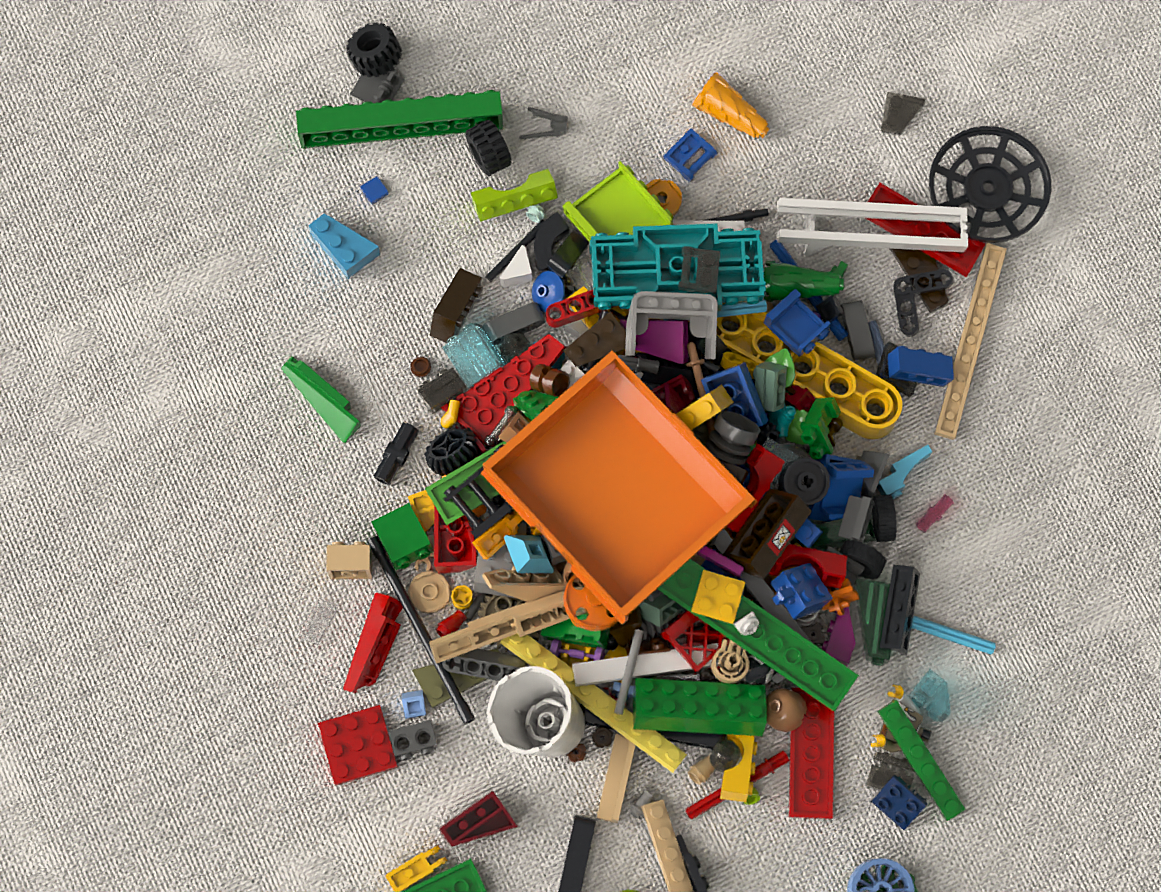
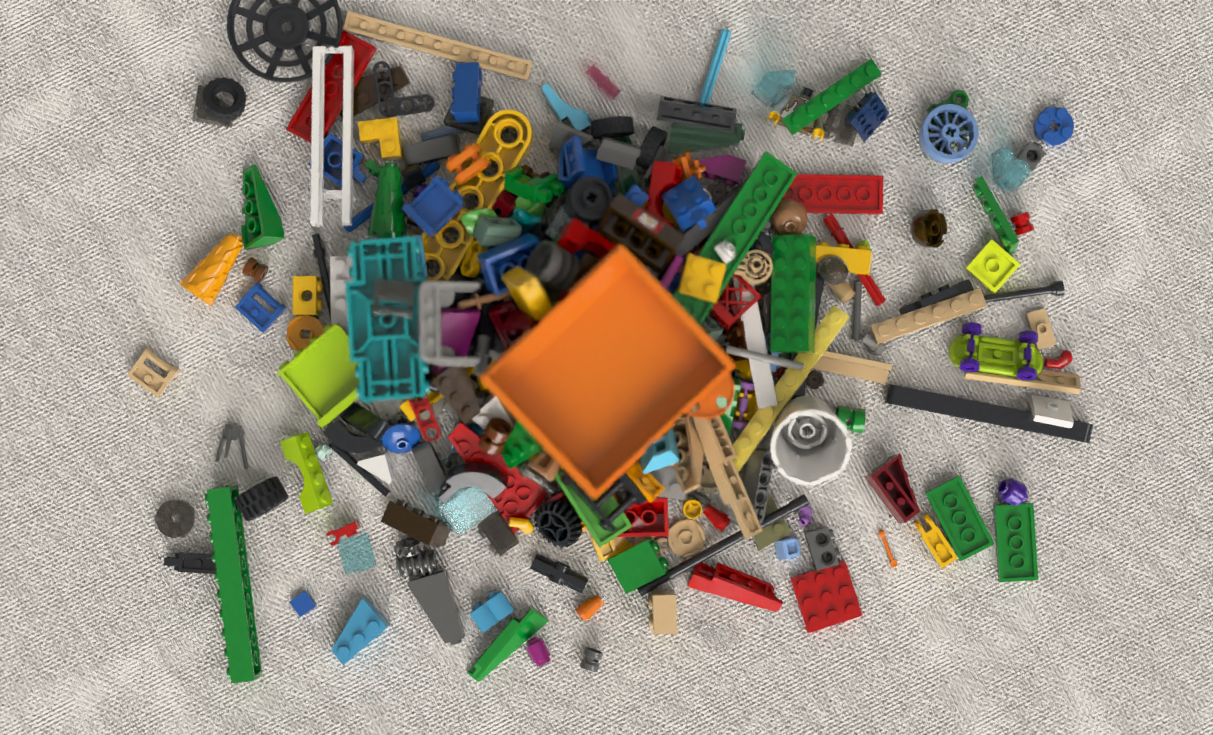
camera: 95 degrees left, 15 degrees up
(300, 485) = (591, 659): none -> dark grey wheel
(311, 429) = (538, 651): none -> magenta brick
(356, 484) = (589, 607): none -> orange cone
(358, 382) = (491, 611): none -> dark azure brick
(366, 328) = (439, 604): none -> dark grey slope
(374, 49) = (155, 619): black tyre -> none
(378, 88) = (197, 605): dark grey hinge -> none
(392, 822) = (893, 563): none -> orange hinge
(411, 304) = (416, 564): none -> dark grey piece
(420, 367) = (475, 553): reddish brown plate -> none
(422, 78) = (191, 563): none -> black hinge
(425, 246) = (356, 553): none -> clear light blue piece
(430, 296) = (409, 547): none -> flat silver gear
(450, 724) = (805, 516): none -> medium lavender arm
(451, 236) = (349, 530): none -> red plate
(466, 55) = (174, 530): none -> clear smoke plate
(507, 361) = (473, 475): none -> arch
(554, 781) = (856, 421): none -> green wheel
(579, 756) = (832, 399): reddish brown plate -> none
(618, 43) = (149, 377): none -> tan plate
(679, 787) = (857, 310): none -> dark grey bar
(711, 193) = (300, 286): none -> yellow brick
(729, 151) = (254, 269): none -> reddish brown wheel
(772, 867) = (928, 228): none -> dark brown cylinder
(781, 159) = (262, 220): none -> green wedge
(846, 225) = (333, 161): none -> blue hinge
(854, 361) = (456, 162): none -> orange brick
(874, 285) = (383, 131): none -> yellow brick
(924, 116) = (224, 85): none -> black tyre

